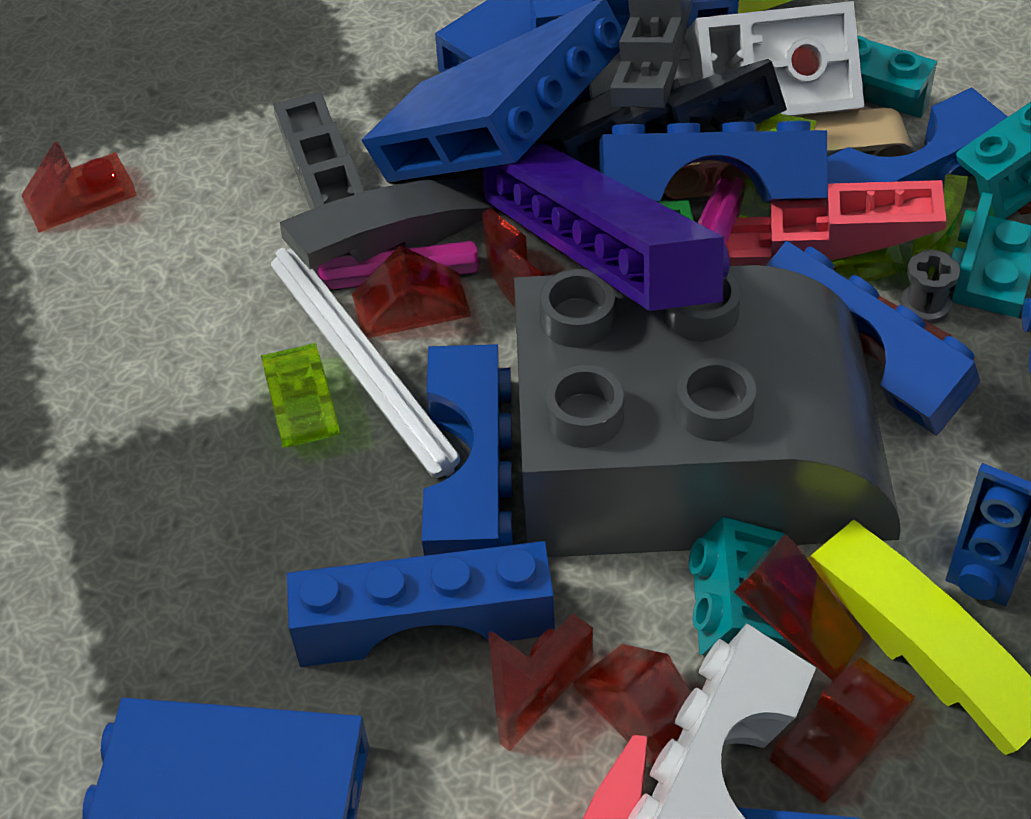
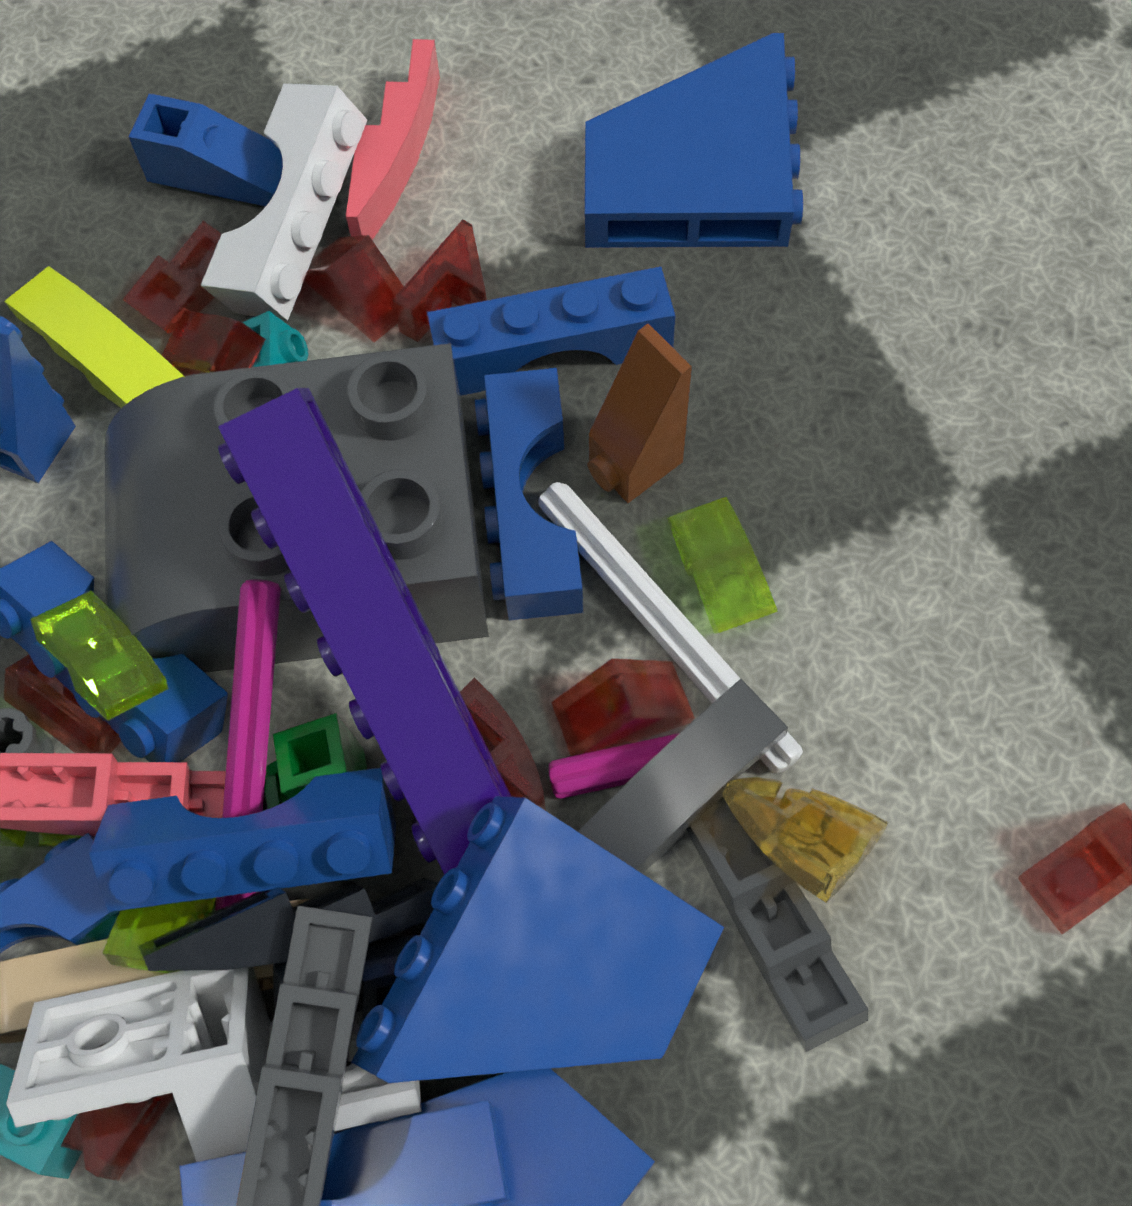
camera: 175 degrees right, 15 degrees up
(282, 187) = (805, 833): none -> clear yellow brick
(345, 468) = (642, 418): none -> dark orange slope
(854, 279) = (100, 653): none -> clear neon green slope

